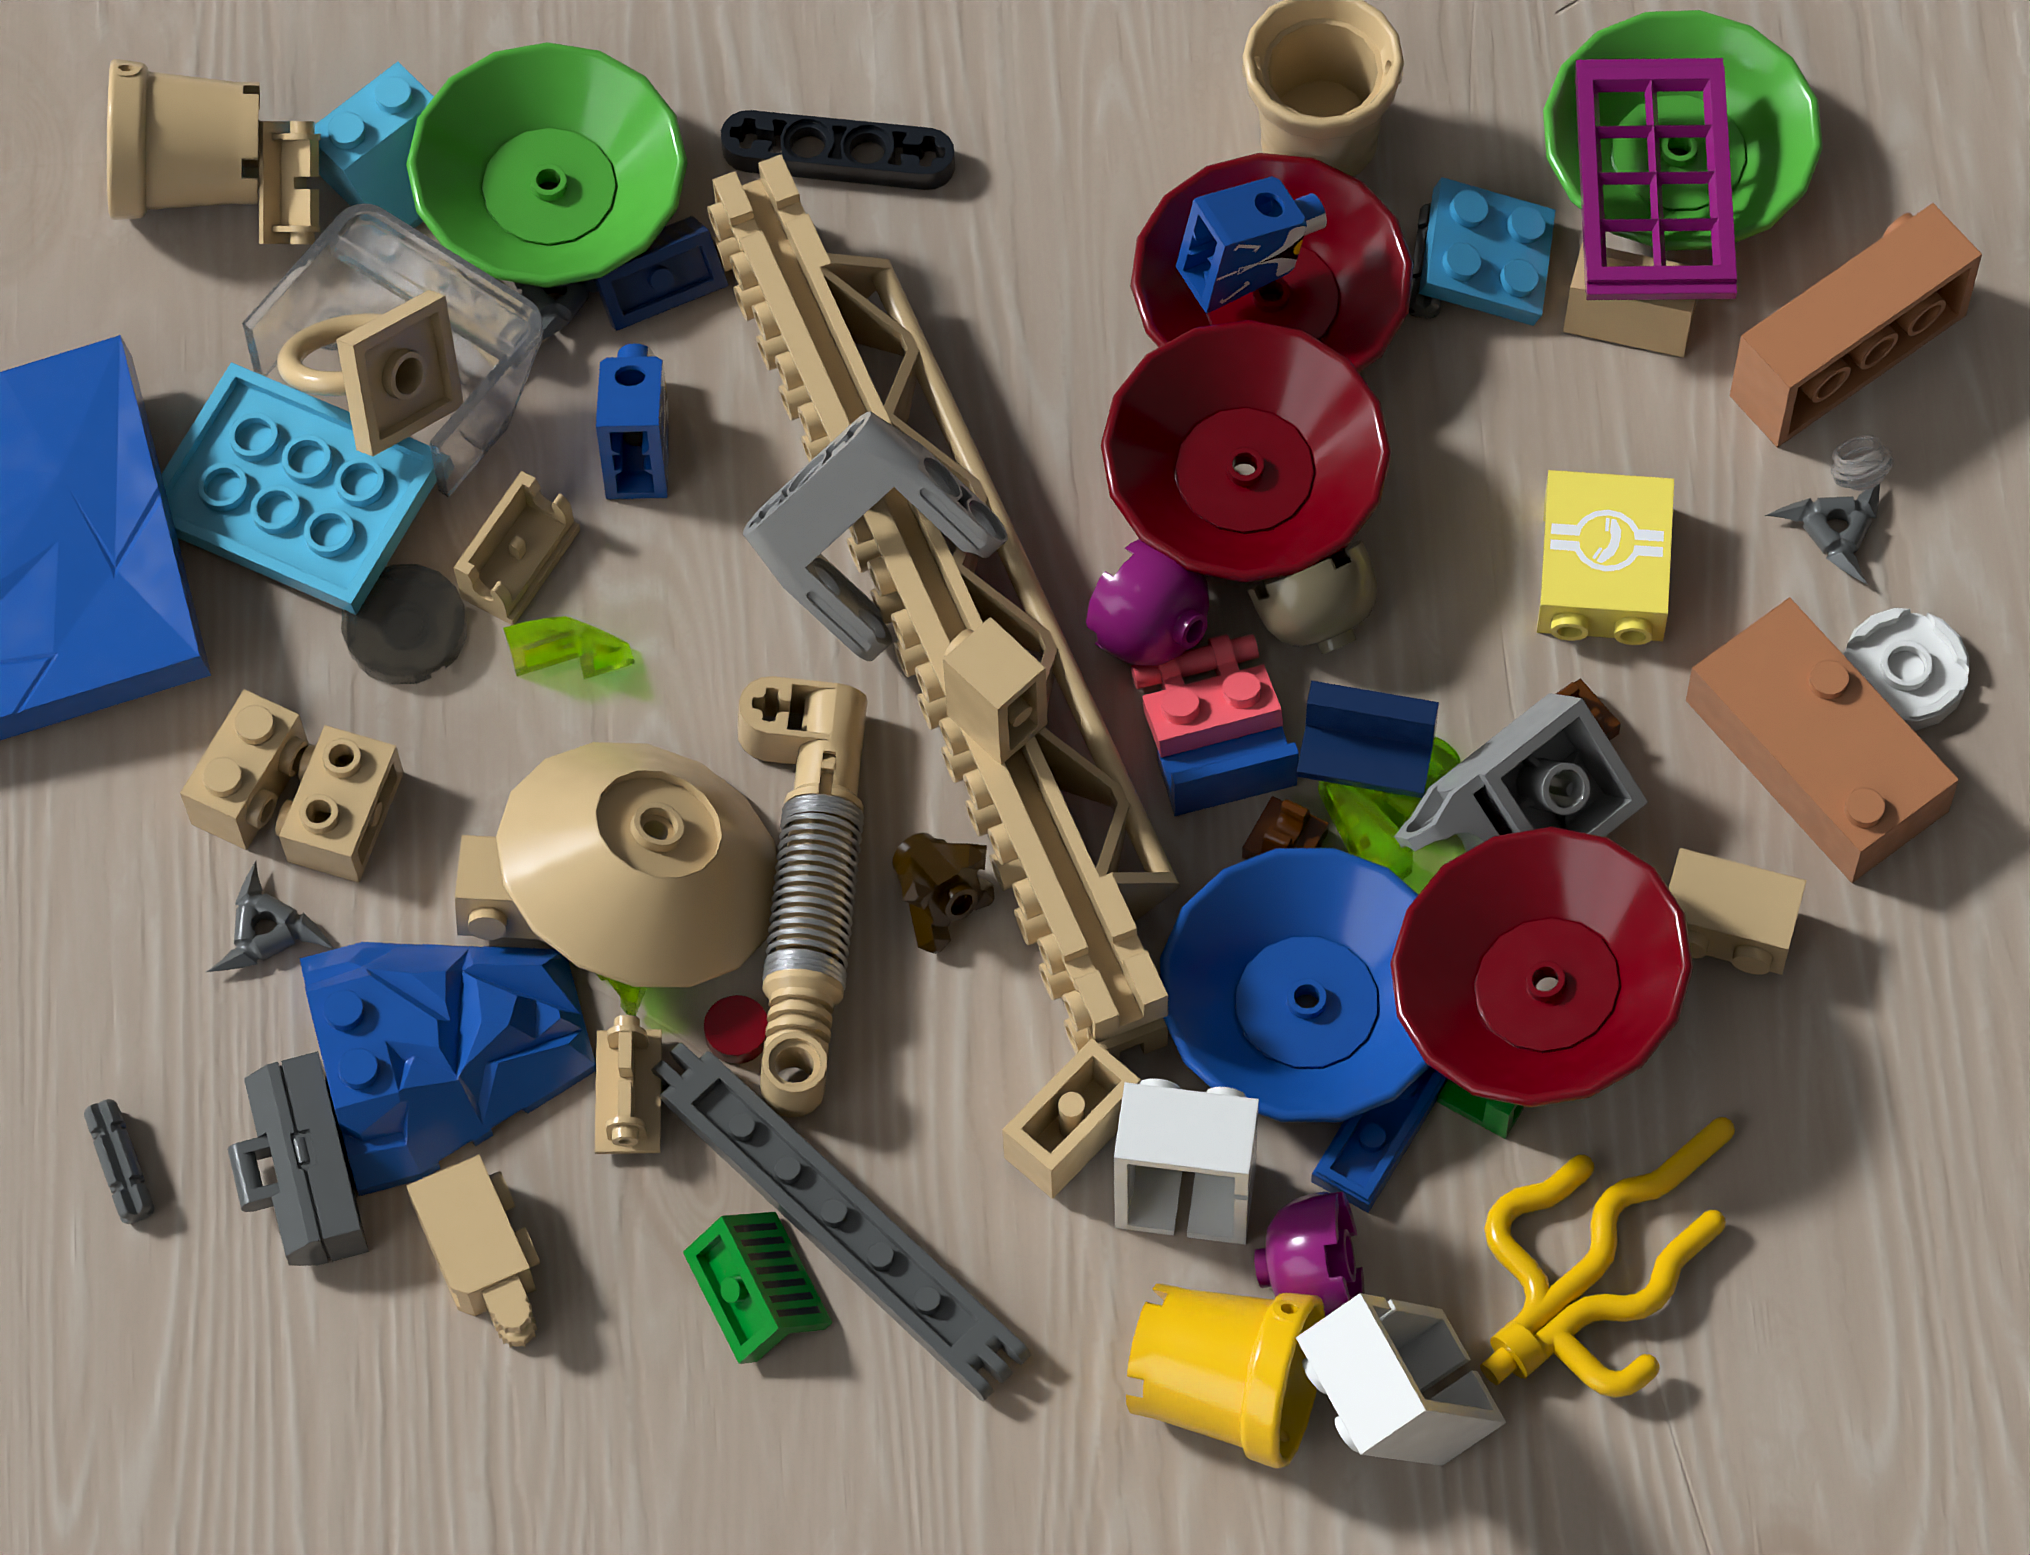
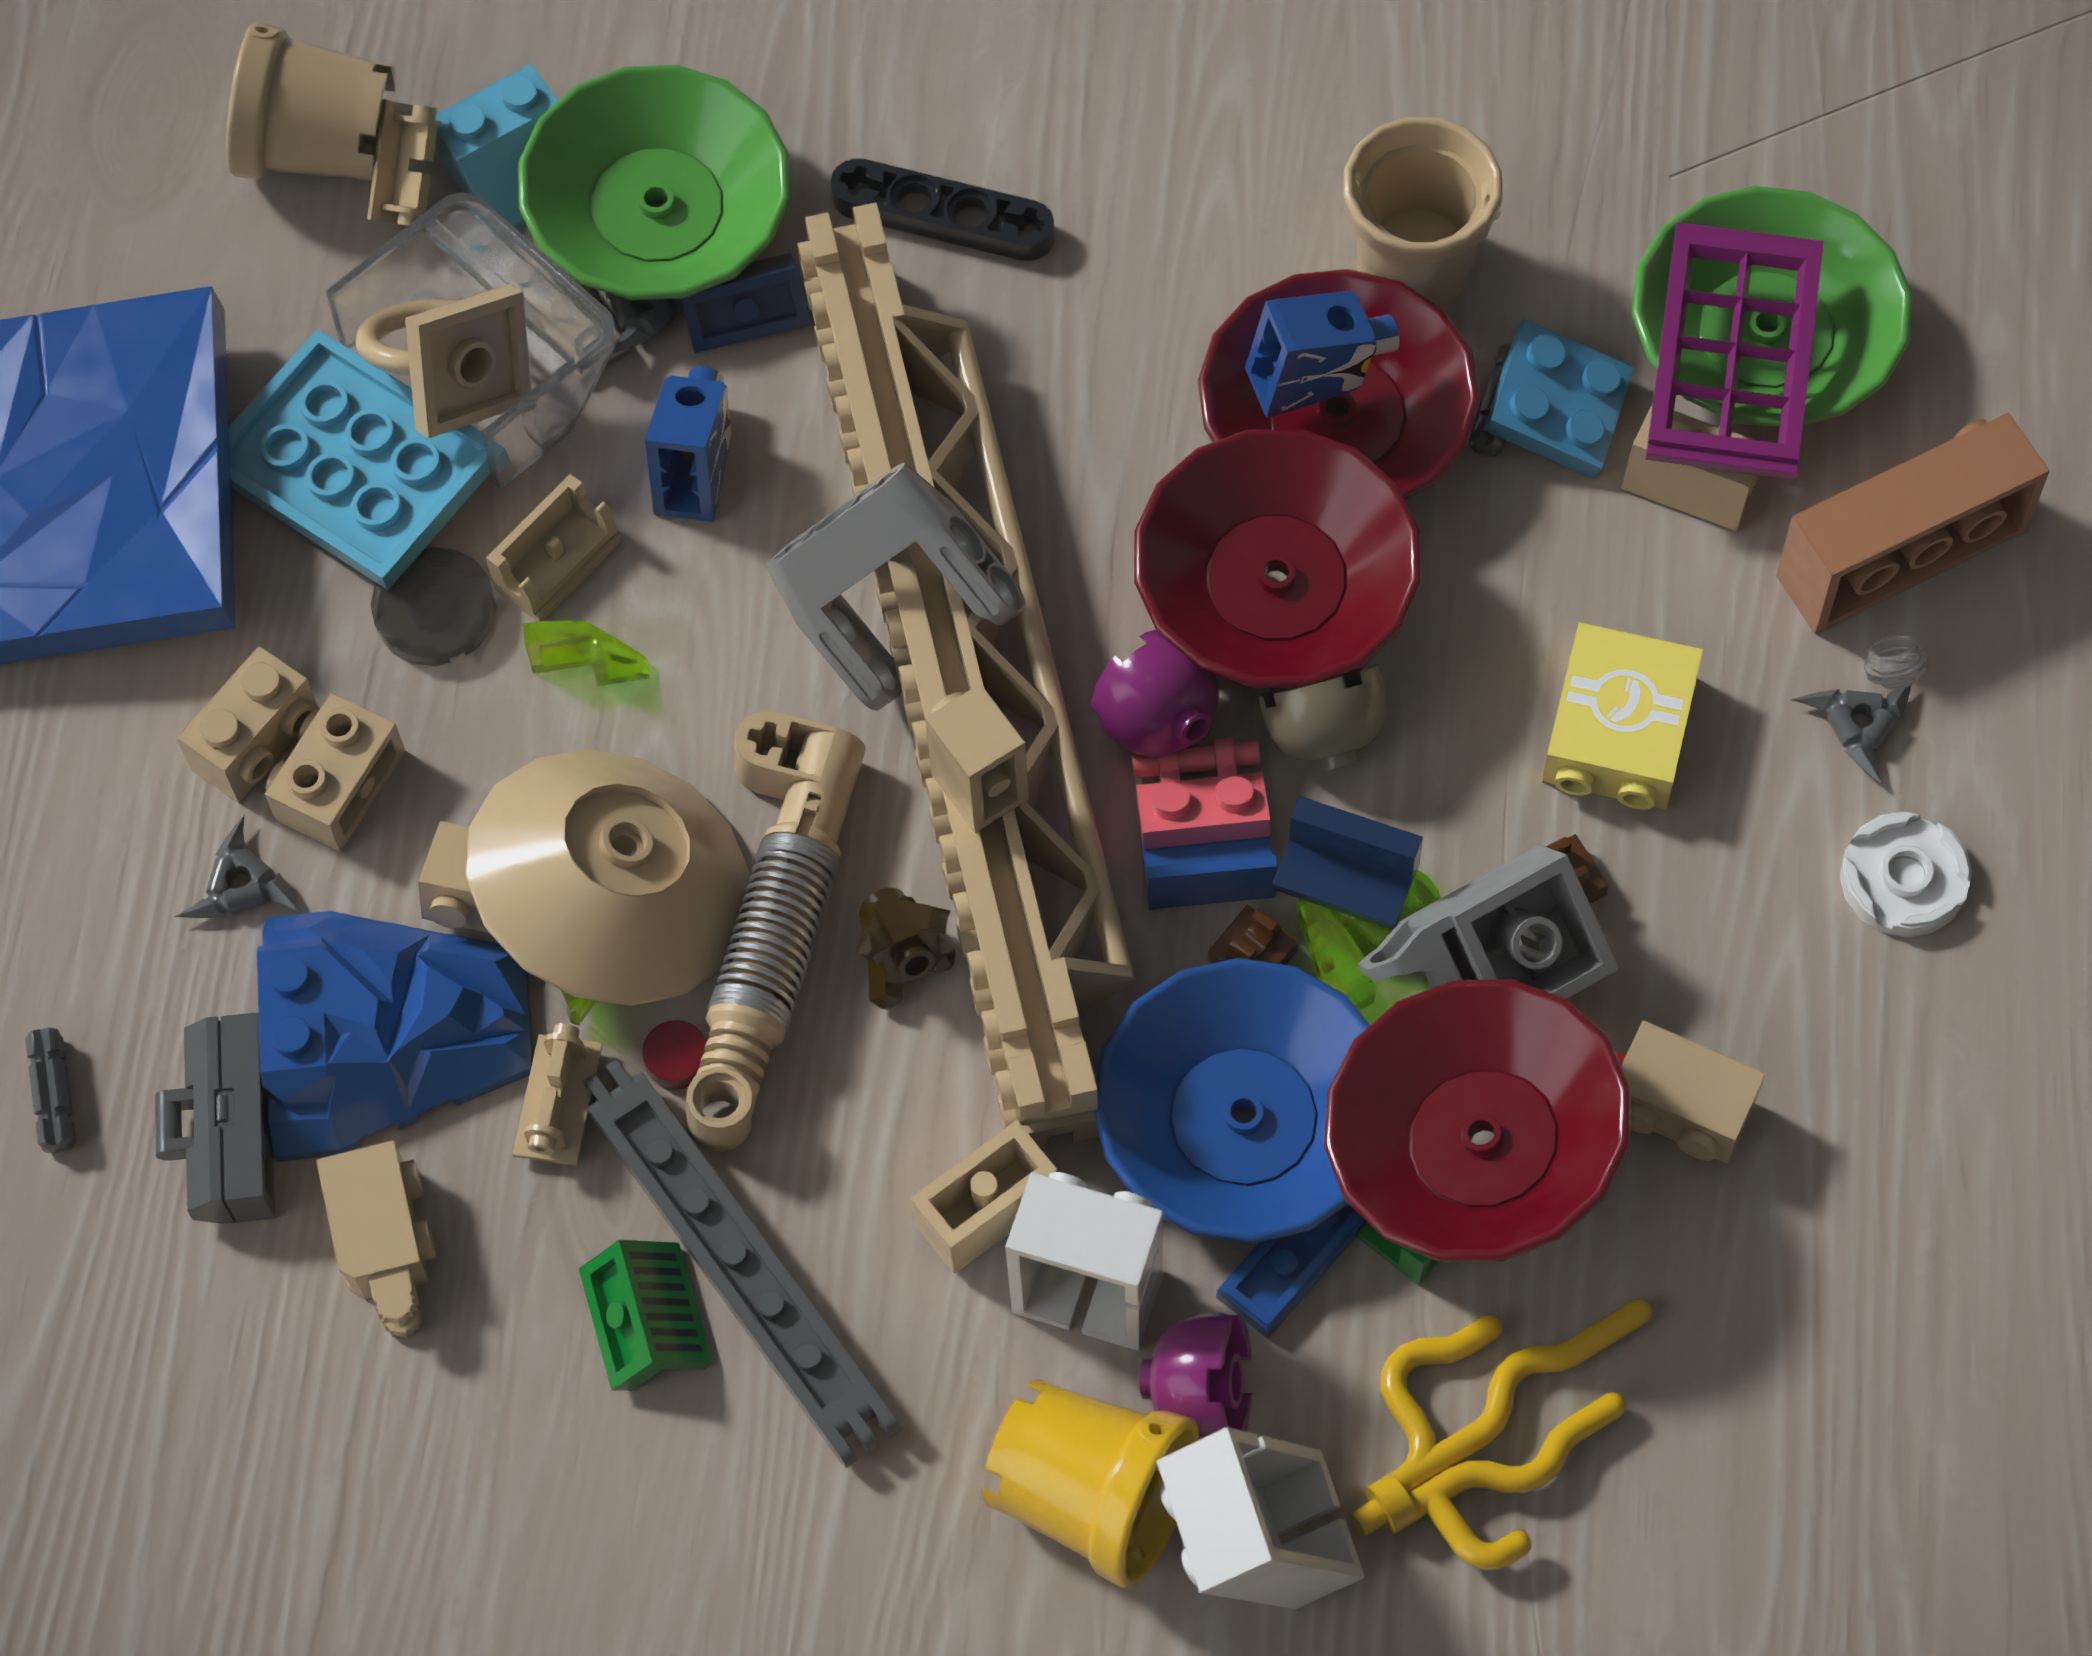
camera: 10 degrees right, 0 degrees up
(1821, 739) = (1807, 933): nougat brick -> none

